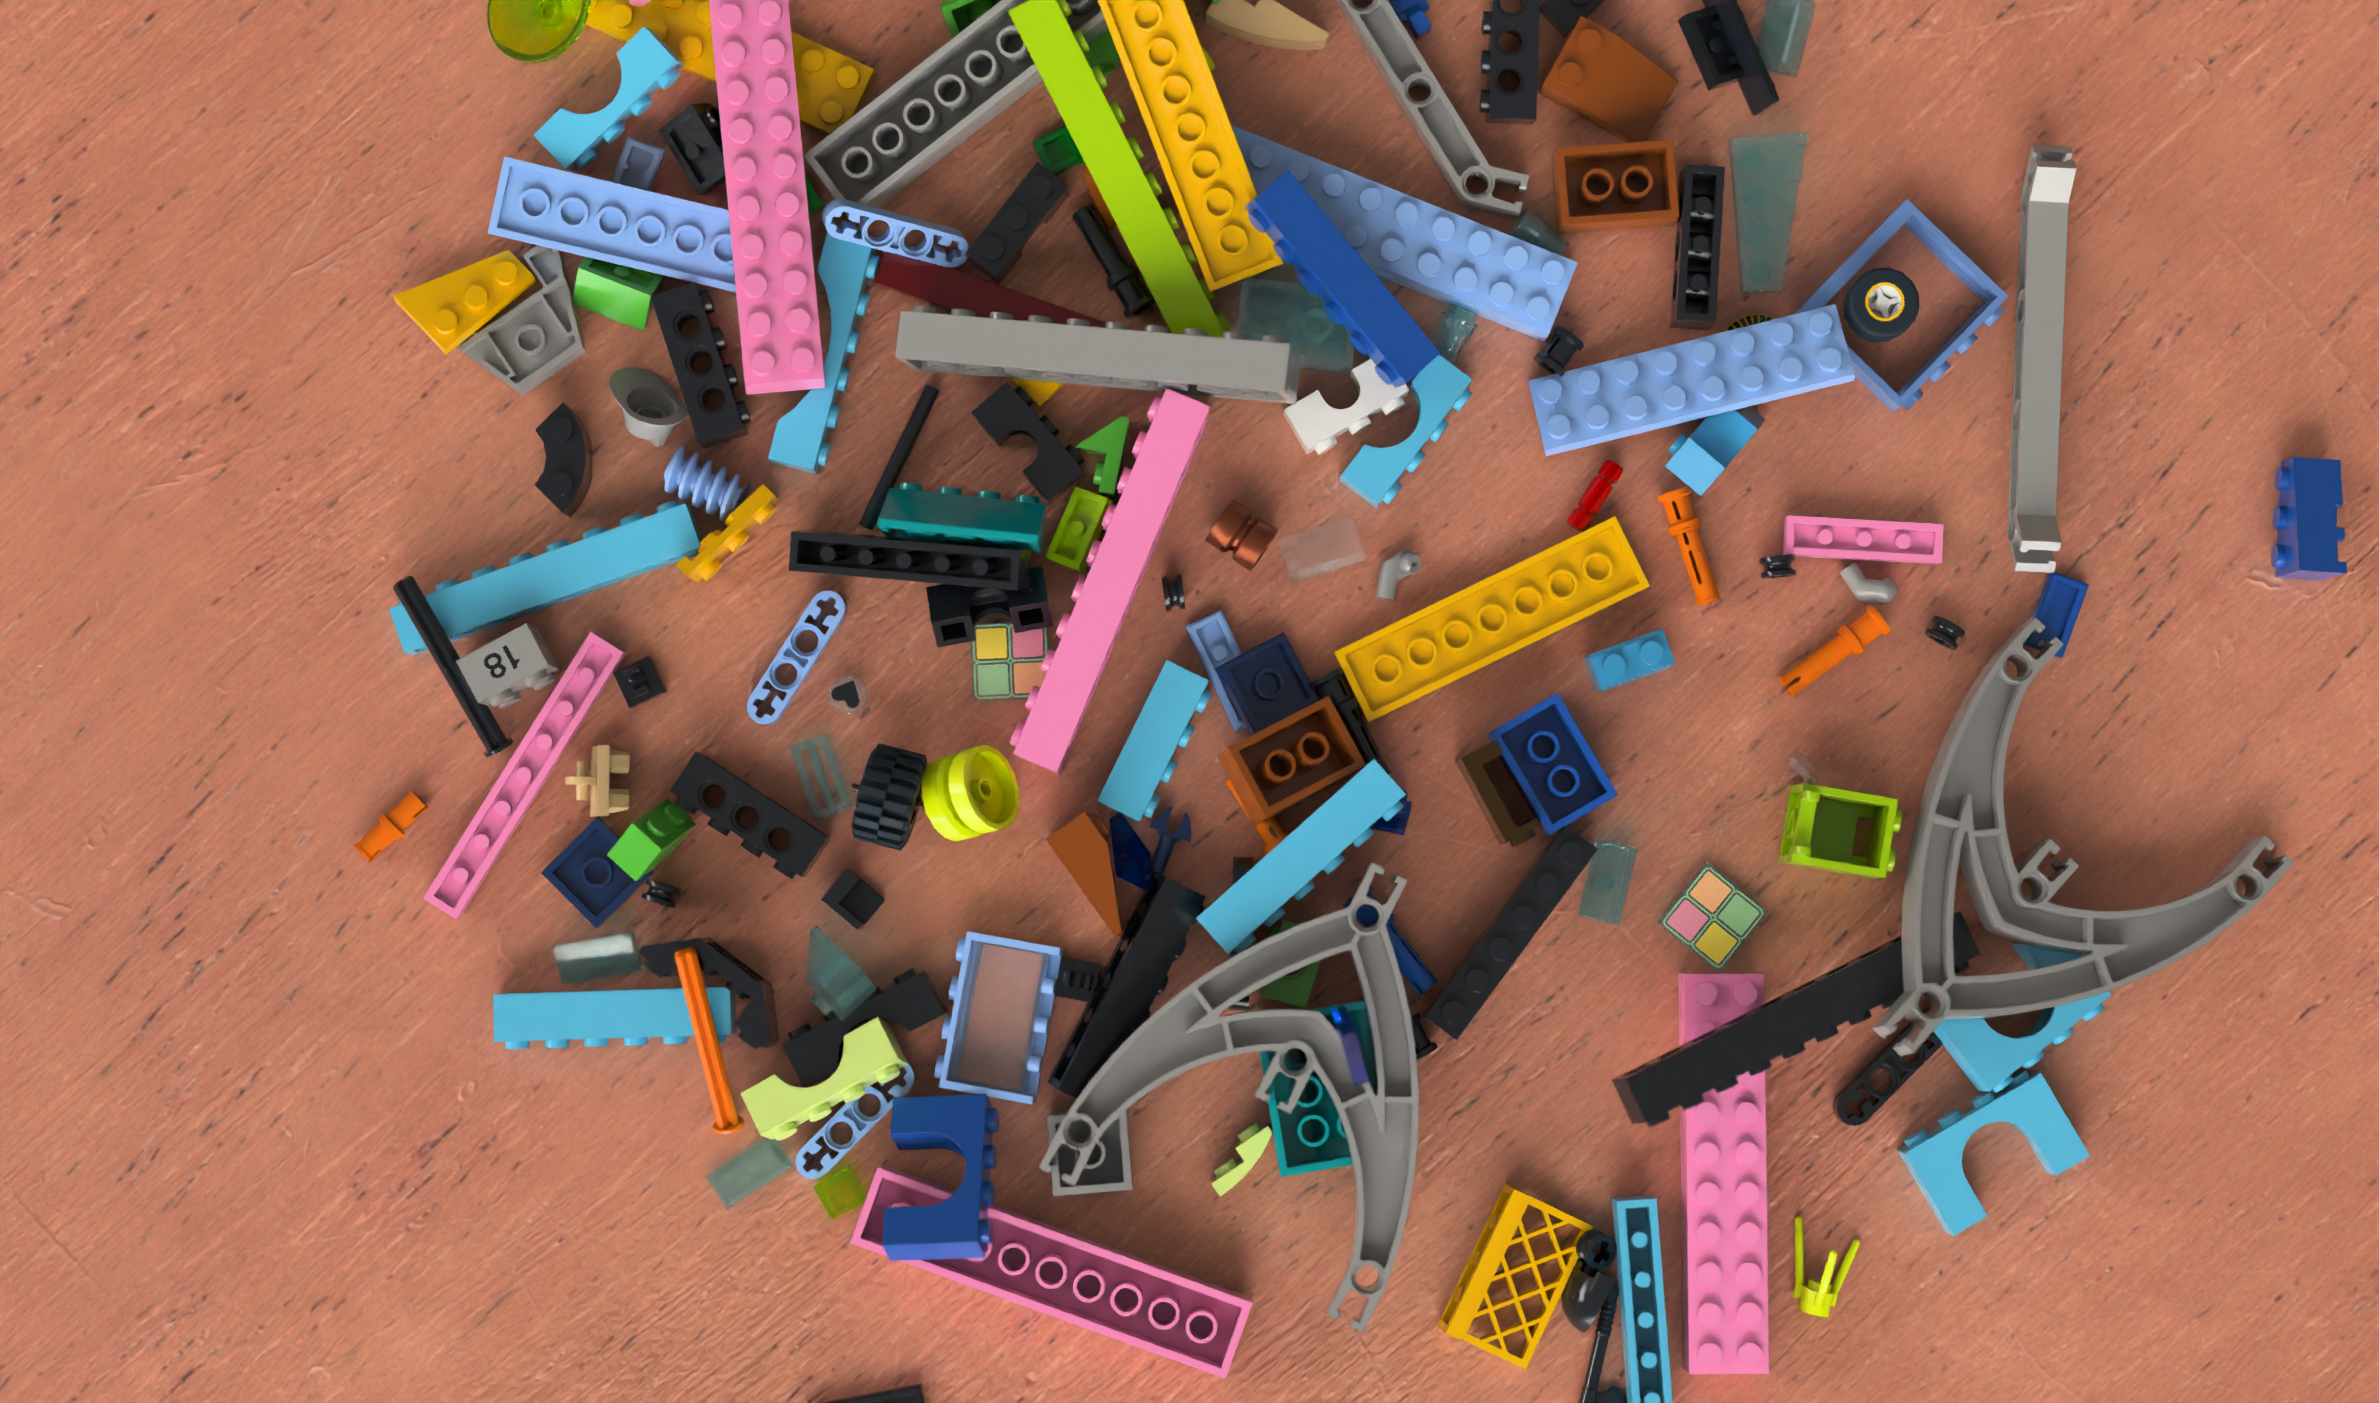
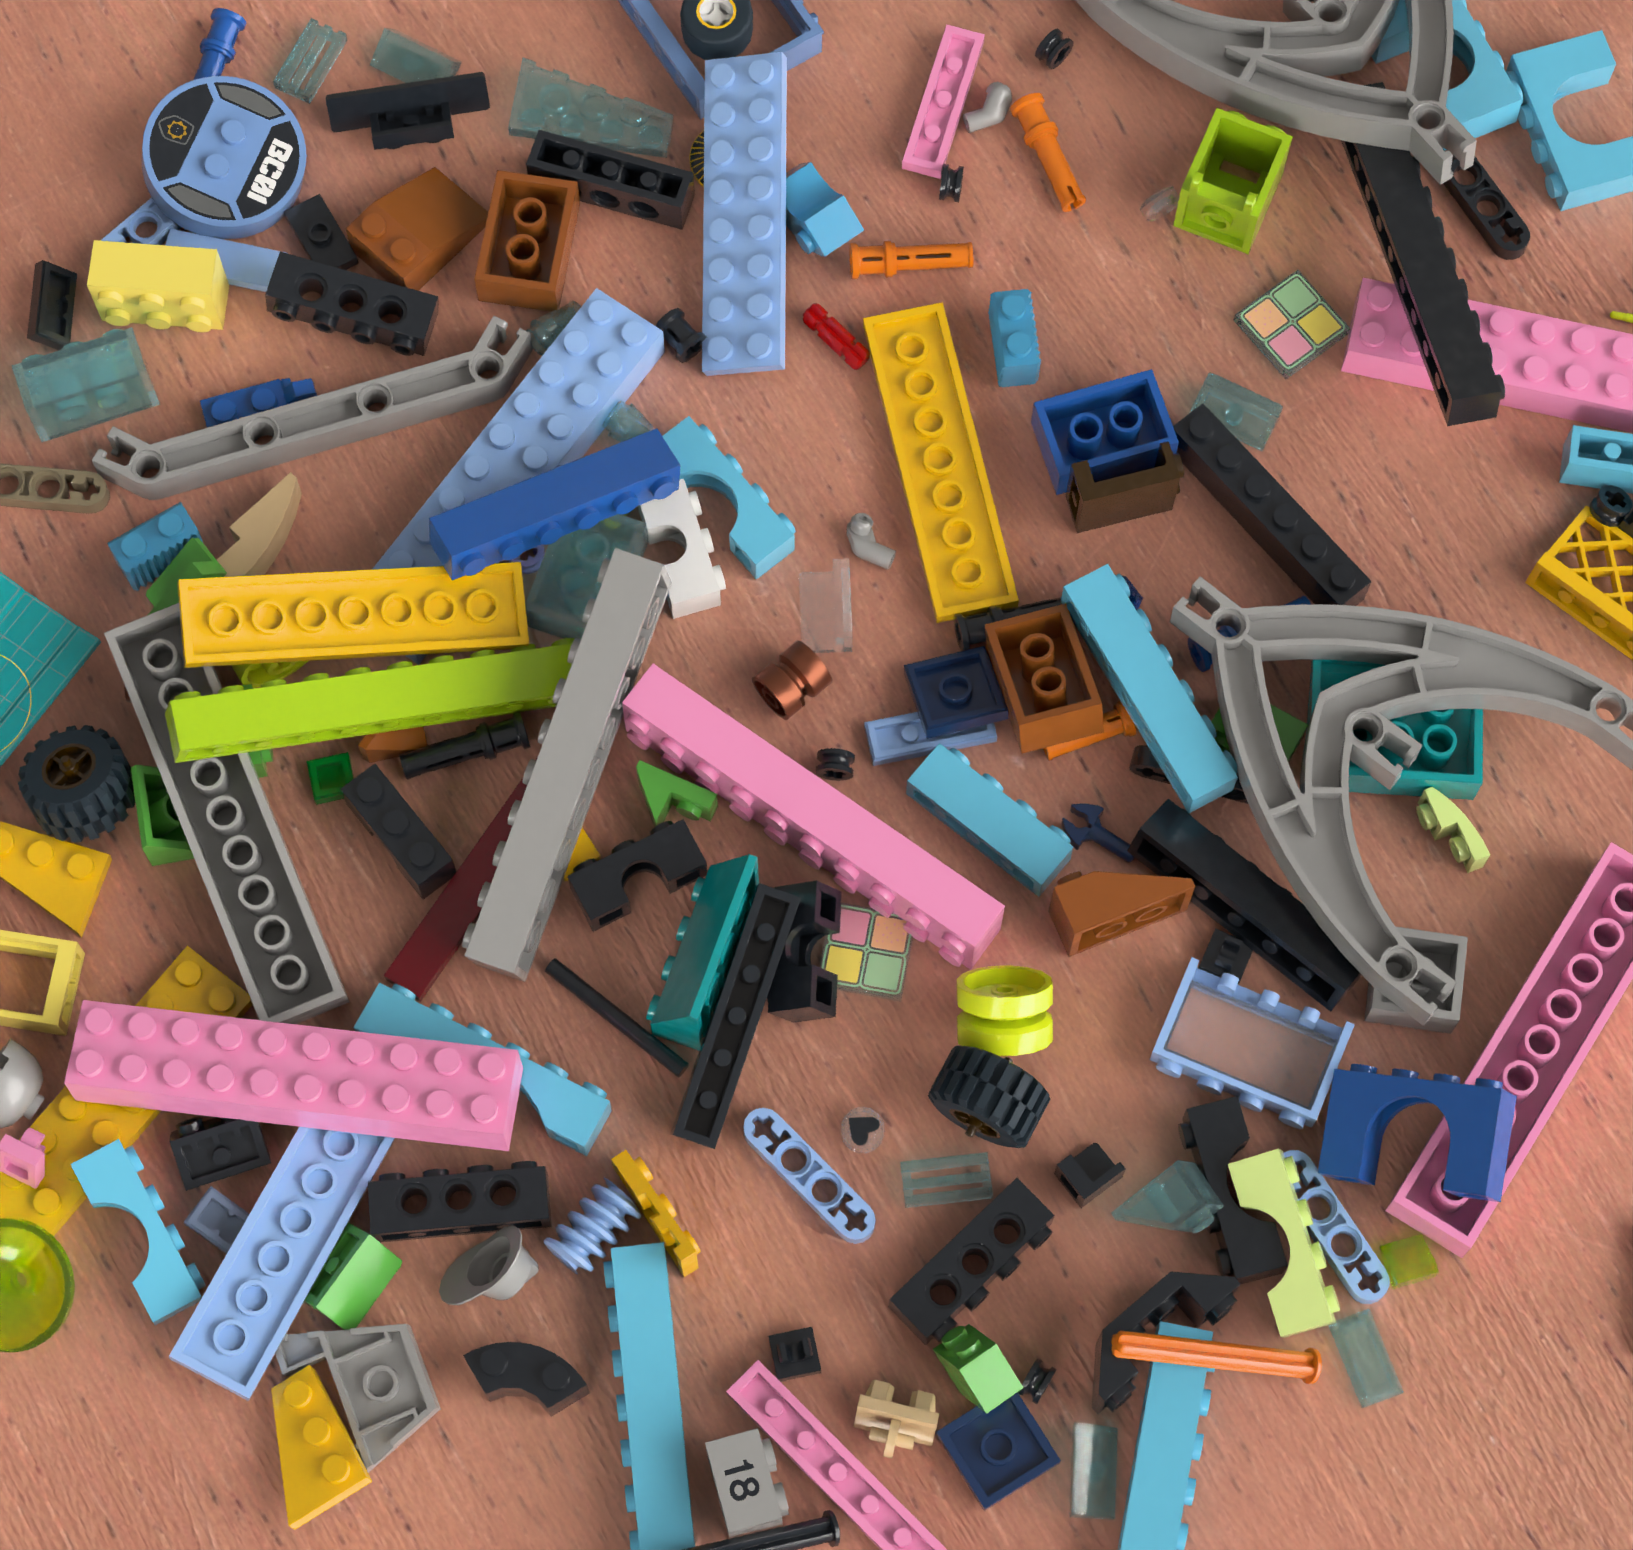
camera: 80 degrees left, 15 degrees down
(897, 229) = (378, 956): light blue beam -> none
(1078, 529) = (736, 836): lime plate -> none
(1130, 854) = (1116, 862): clear blue tile -> none
(1350, 1044) = (1361, 663): clear blue tile -> none

